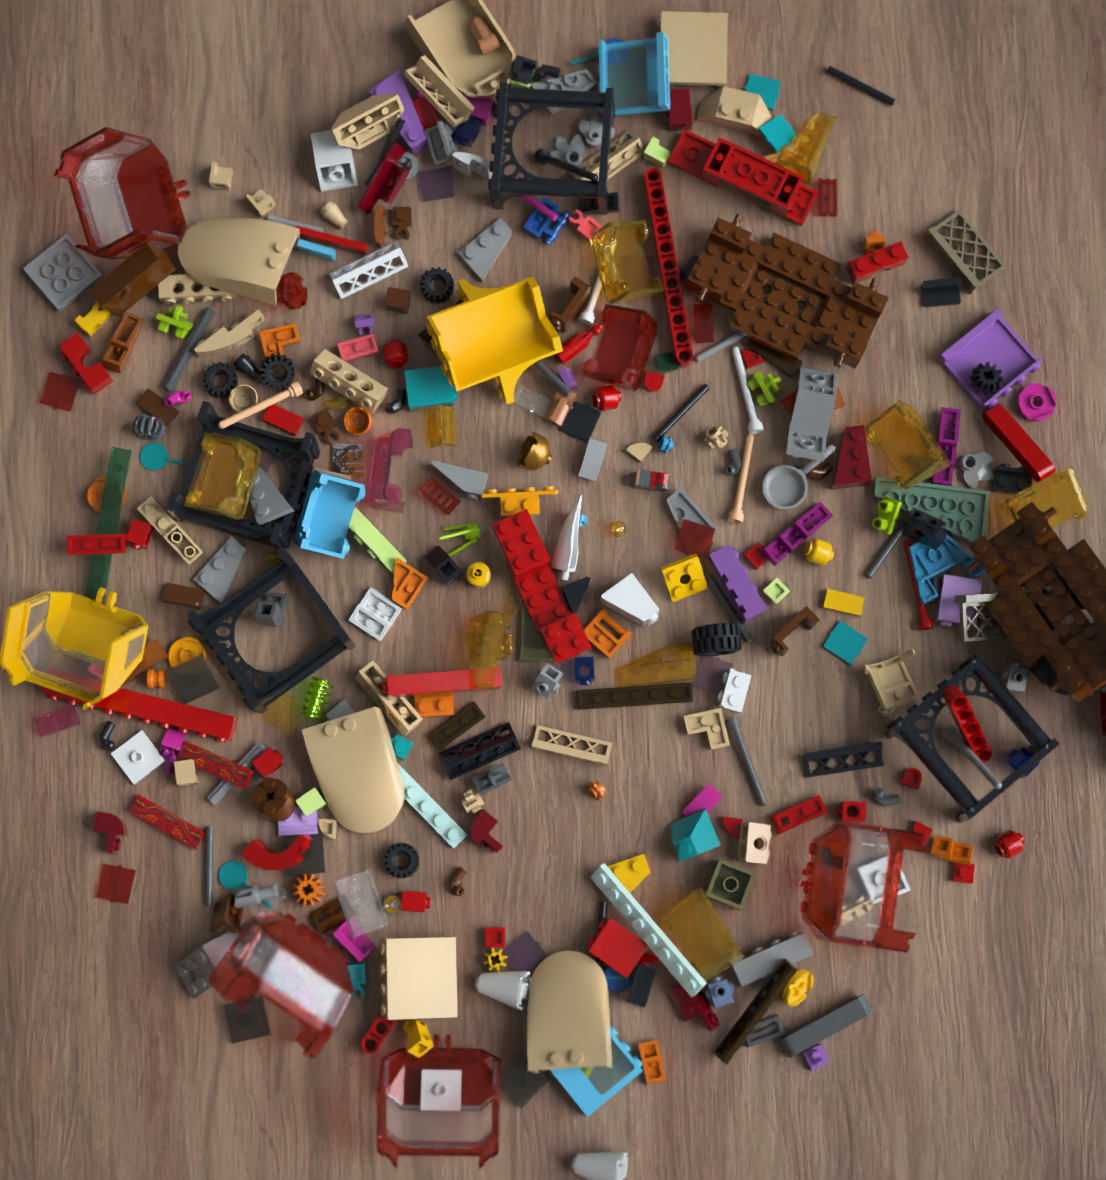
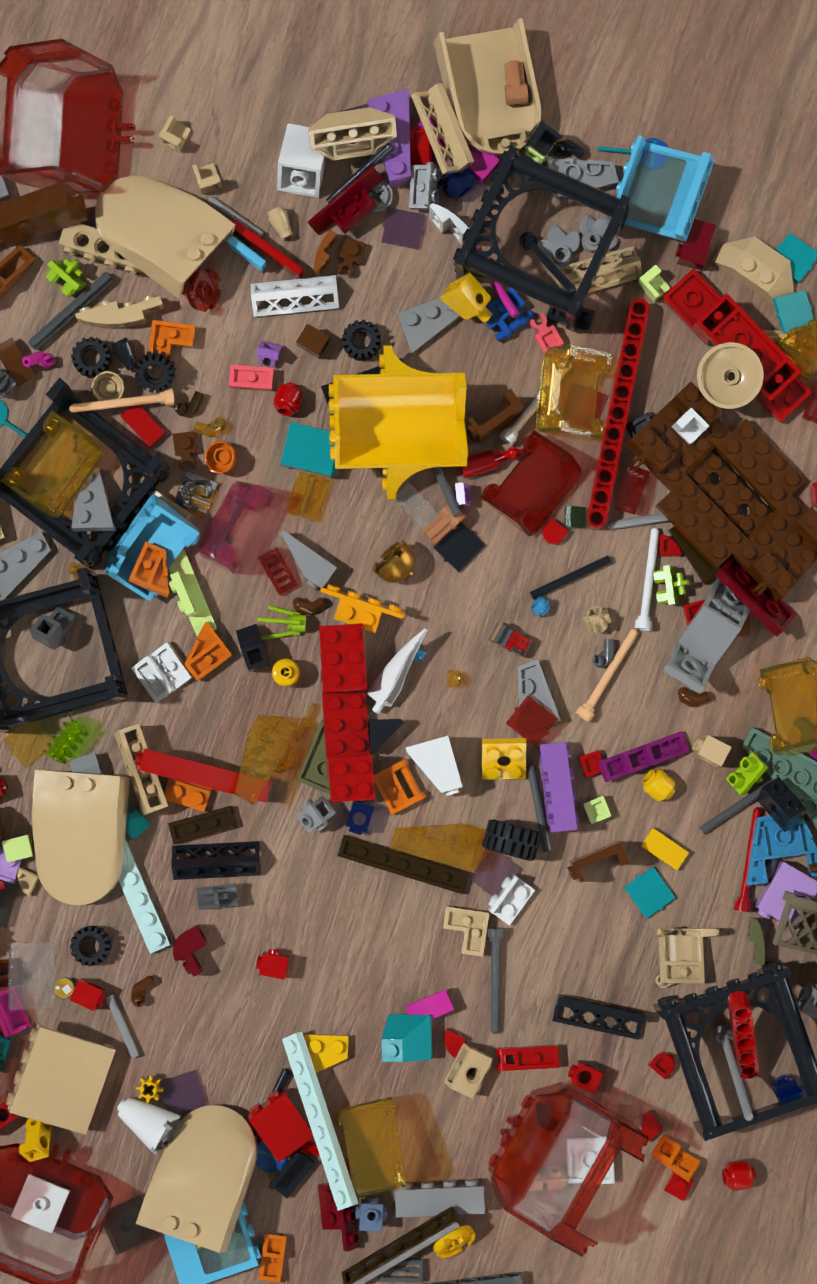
camera: 20 degrees right, 5 degrees up
(335, 532) = (151, 570): none -> orange wing
(348, 381) = (227, 410): tan brick -> none
(398, 404) = (272, 454): black arm -> none
(452, 917) = (122, 1026): none -> light grey bar
(472, 802) = (187, 913): tan gear -> none
(475, 516) = (306, 607): none -> reddish brown arm
(495, 937) = (158, 1064): red plate -> none
(511, 218) = (467, 298): none -> yellow torso
(559, 817) = (273, 964): none -> red brick
(571, 752) = (310, 898): tan fence -> none
(592, 459) = (455, 593): light grey slope -> none
(596, 790) = (323, 950): orange plate -> none
(606, 398) = (496, 532): red head -> none
(639, 450) = (509, 602): tan tile -> none
(696, 47) = (741, 182): tan panel -> none
(730, 884) = (425, 1105): olive brick -> none
(731, 252) = (690, 426): none -> white panel
(745, 186) = (714, 370): none -> tan dish
(787, 486) = (652, 701): light grey piece -> none
(850, 507) = (710, 750): none -> tan brick
(852, 460) = (734, 700): dark red wedge -> none
(857, 378) = (772, 613): none -> dark red plate
(883, 799) = (624, 1075): dark grey arm -> none
(945, 643) = (755, 934): none -> olive slope

